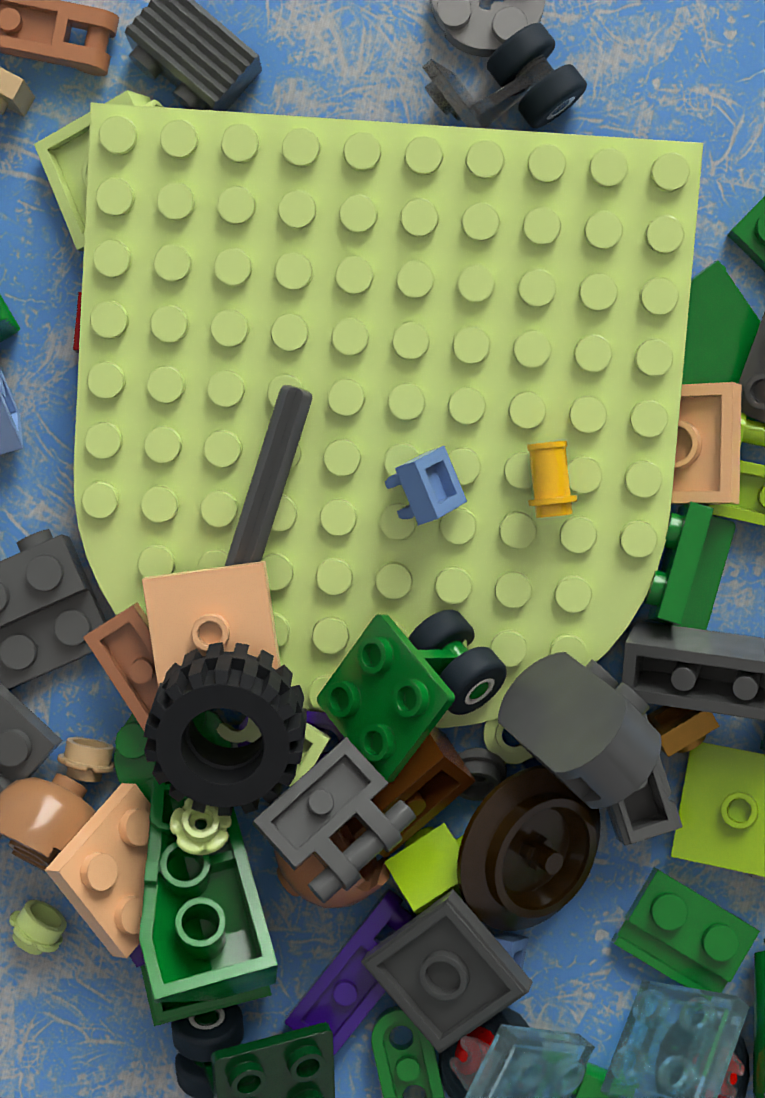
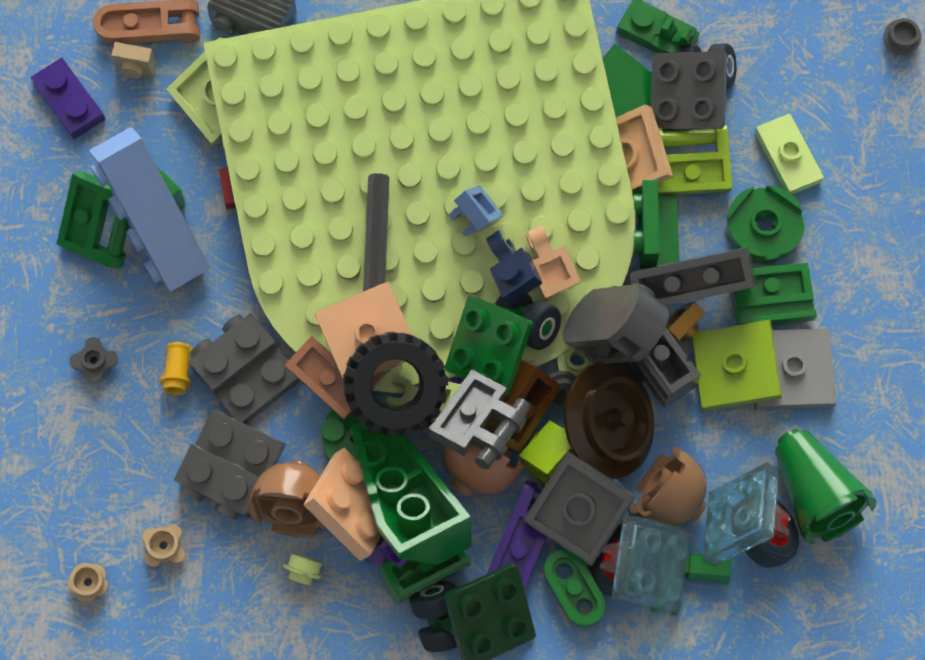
camera: 20 degrees left, 15 degrees down
(87, 759) = (305, 451): tan plate -> none
(195, 840) = (395, 454): yellowish green plate -> none
(457, 598) = (515, 272): none -> dark blue plate
(514, 603) = (553, 266): none -> light nougat plate
(550, 479) = (551, 185): yellow pin -> none
(585, 974) = (672, 490): none -> medium nougat cylinder
(684, 934) = (727, 451): green plate -> none

